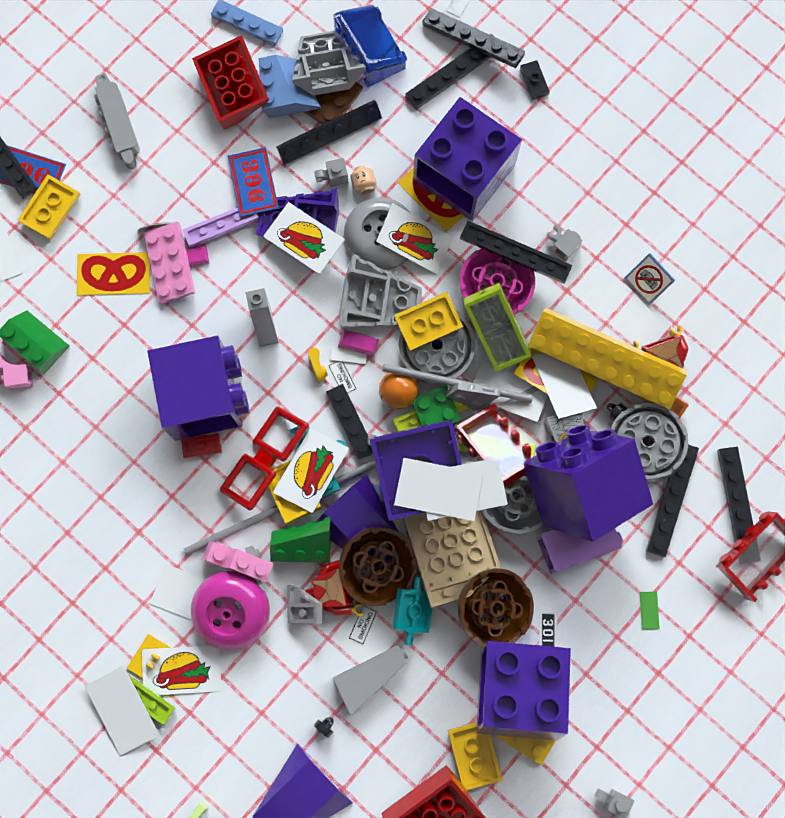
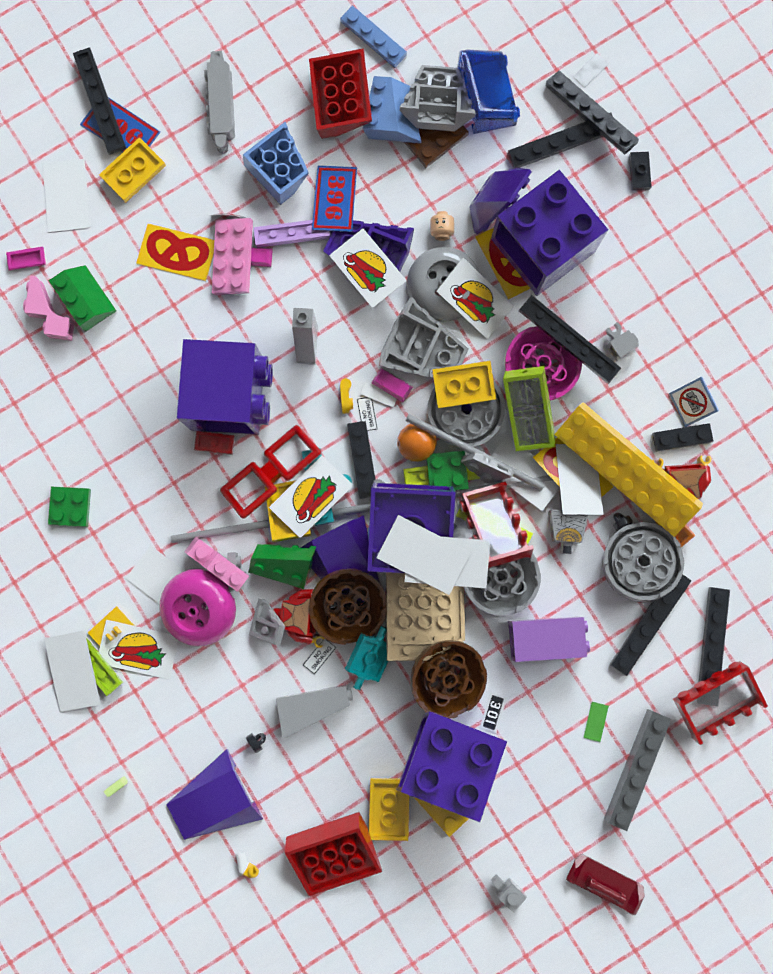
camera: 20 degrees right, 5 degrees up
(74, 548) = (69, 506): none -> green plate
(188, 164) = (277, 164): none -> medium blue wedge
(329, 132) = (422, 169): black plate -> none
(335, 173) = (416, 211): light grey brick -> none
(406, 138) = (497, 195): none -> dark purple wedge
(588, 482) = (572, 587): dark purple piece -> none
(649, 315) = (682, 437): none -> black plate
(702, 644) = (637, 770): none -> dark grey brick
(707, 765) = (606, 883): none -> dark red piece

